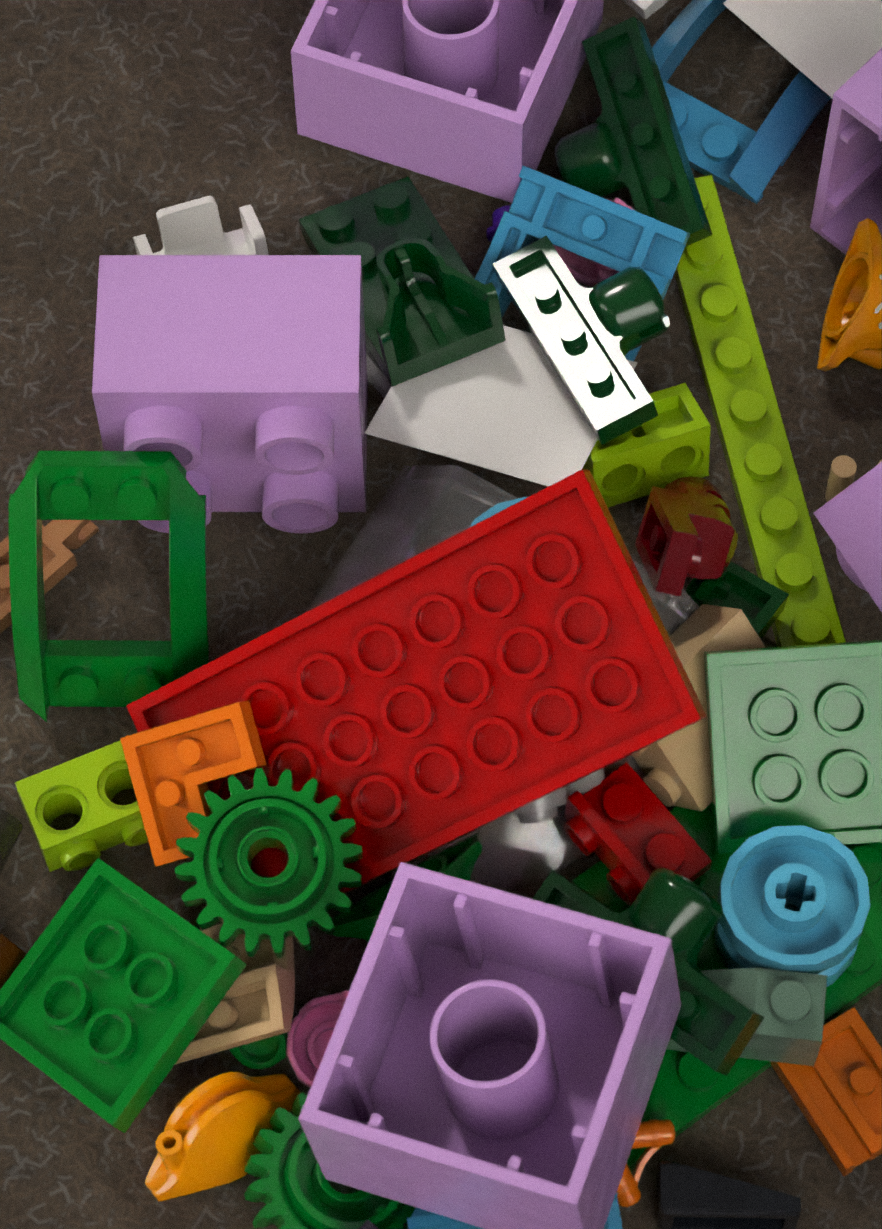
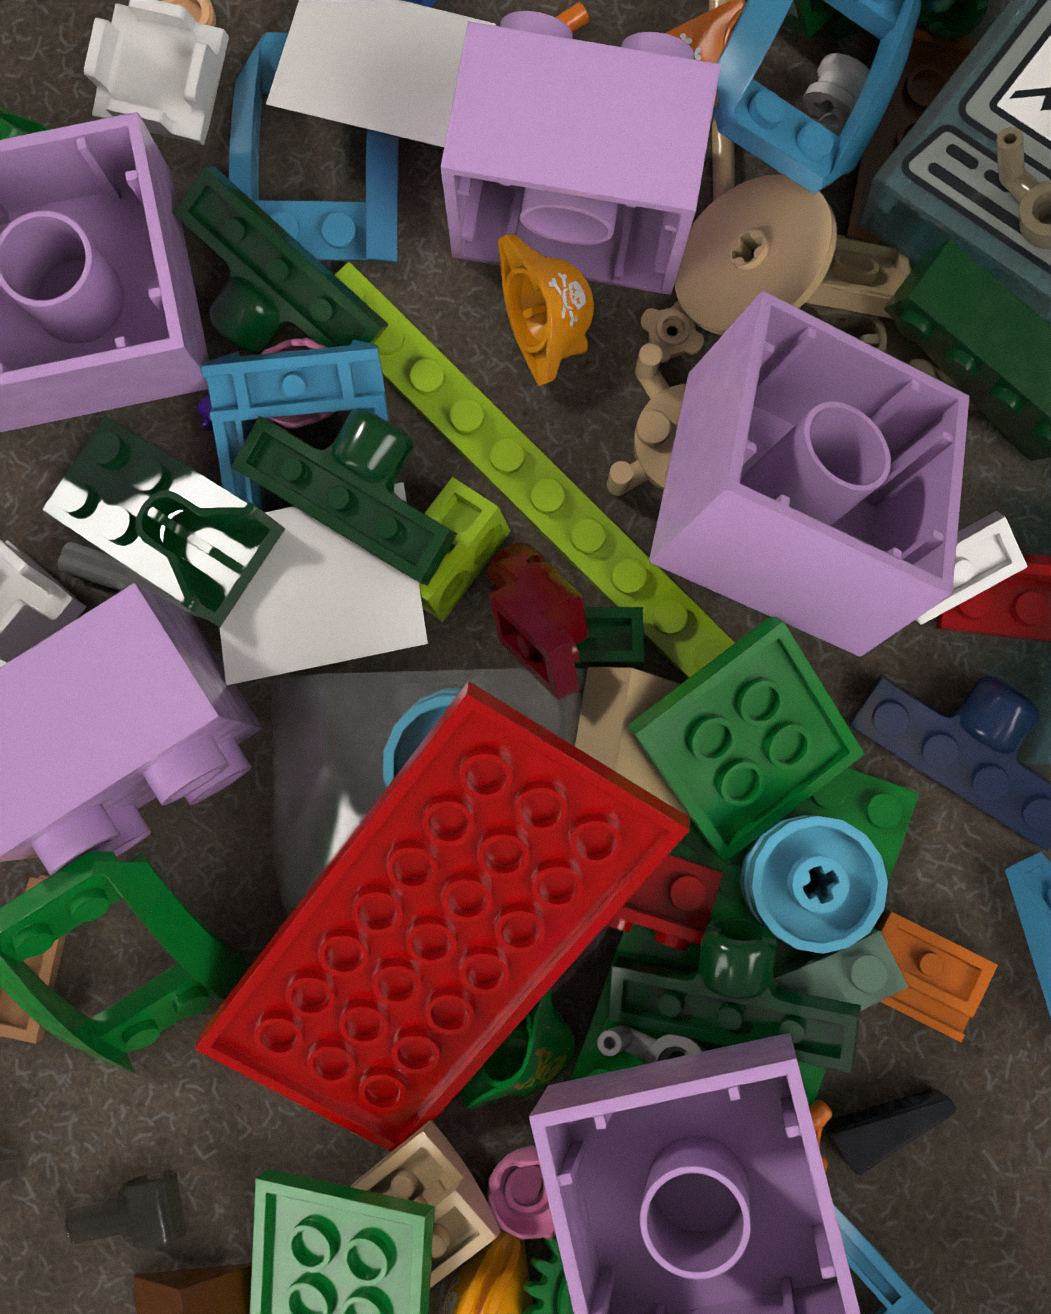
camera: 35 degrees left, 20 degrees up
(85, 789) = (211, 1115): lime brick -> none
(177, 762) = (275, 1082): orange plate -> none
(278, 904) = (406, 1156): green gear -> none

